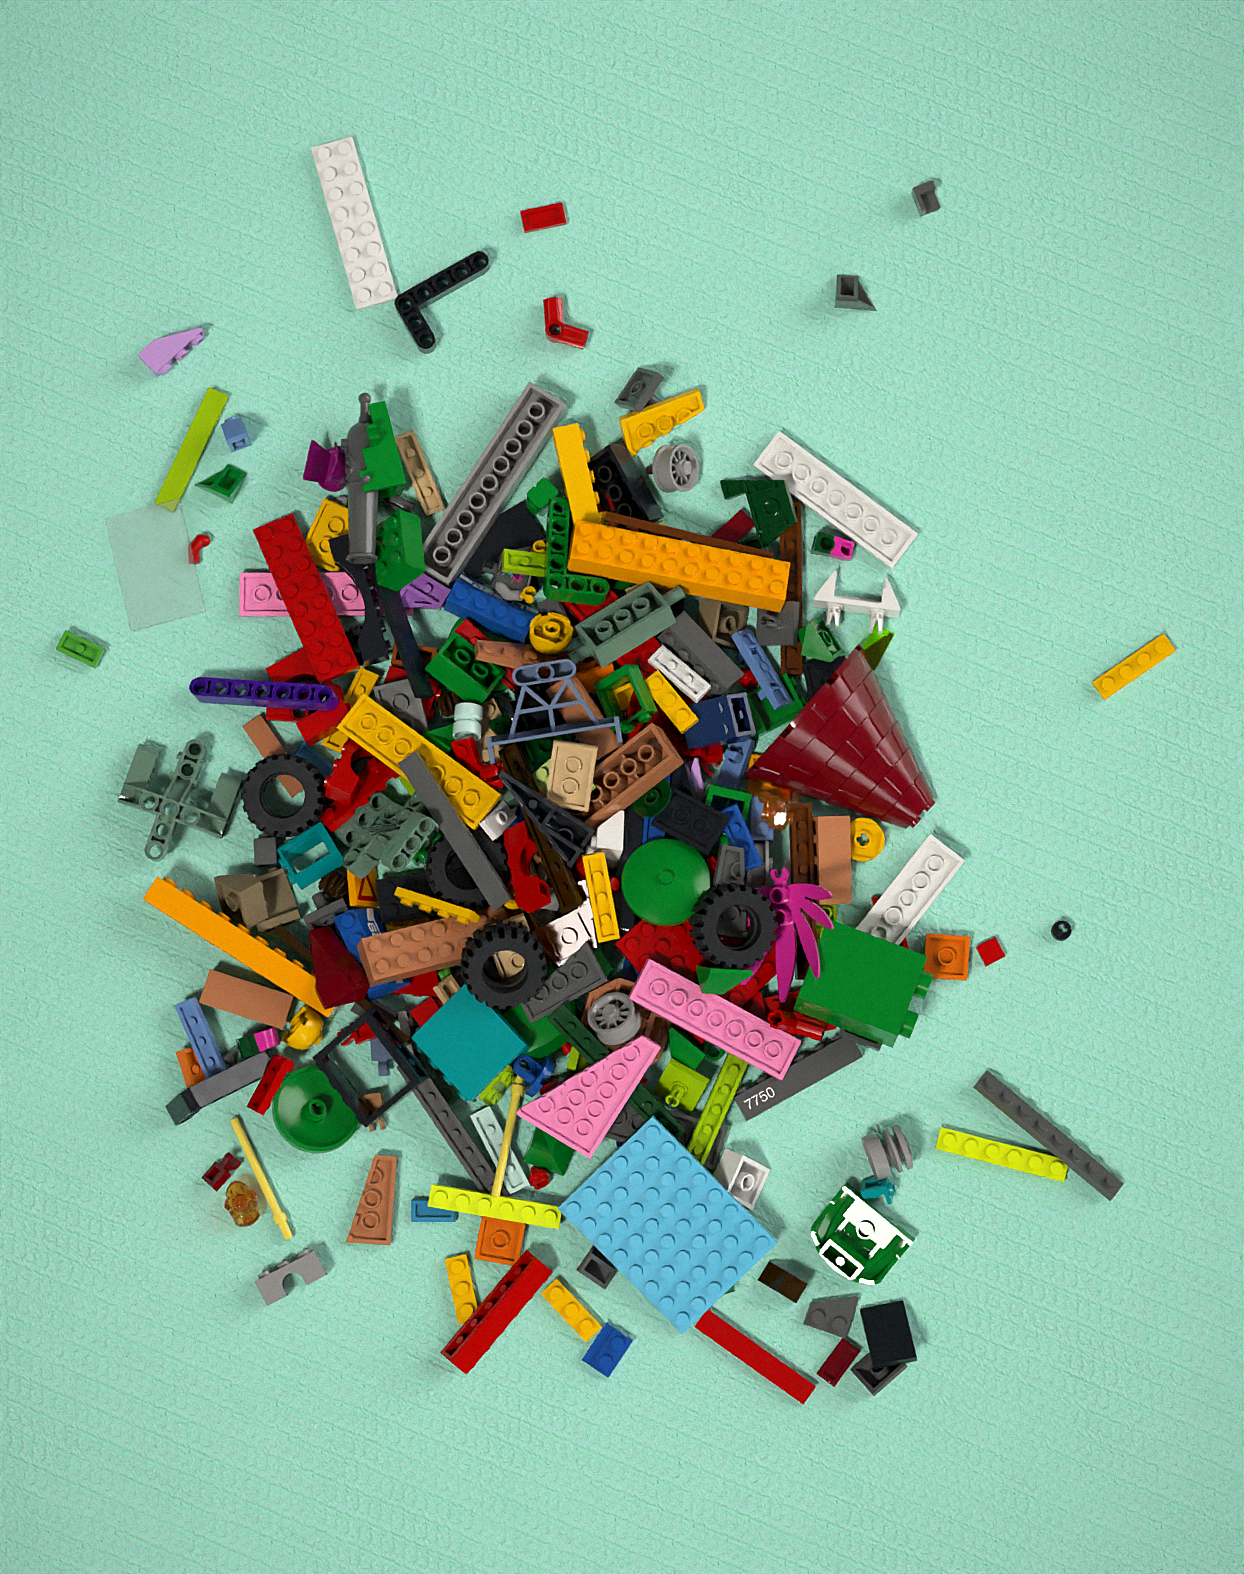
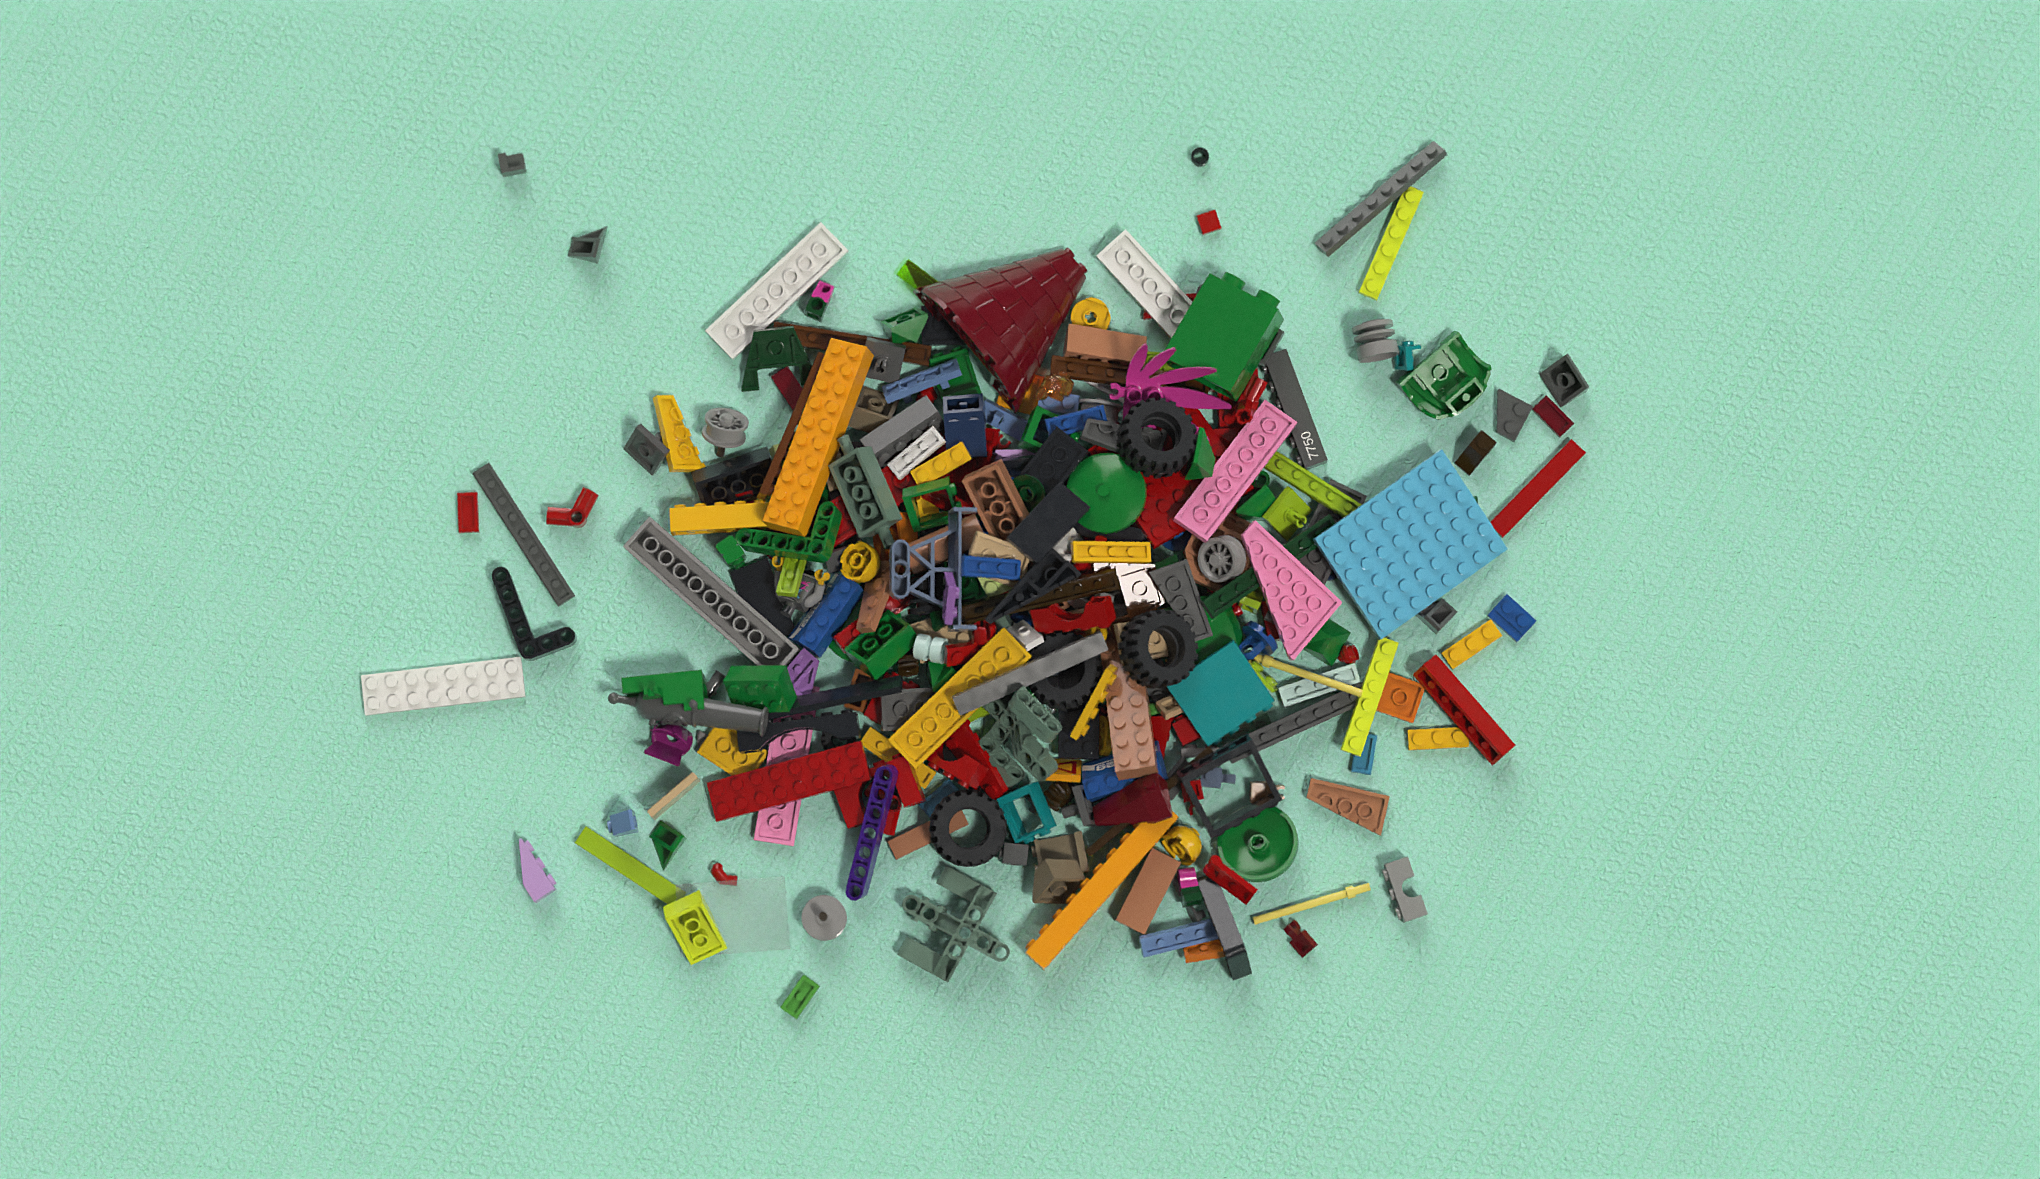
camera: 80 degrees left, 0 degrees up
(136, 525) = (694, 927): none -> neon yellow slope
(167, 660) = (824, 917): none -> light grey wheel
(242, 1204) = (1332, 923): clear orange head -> none
(271, 480) = (673, 796): none -> tan tile
(419, 473) = (690, 661): tan tile -> none
(523, 729) = (949, 595): none -> medium lavender wing
(529, 279) = (523, 534): none -> dark grey tile
(559, 768) = (990, 567): none -> blue tile
(620, 823) = (1048, 523): none -> black tile
(741, 1177) = (1376, 474): white slope -> none
(887, 607) = (882, 261): white hose -> none
(888, 1334) = (1536, 366): black tile -> none
(947, 956) = (1207, 258): orange plate -> none
(1133, 666) = (972, 53): yellow plate -> none

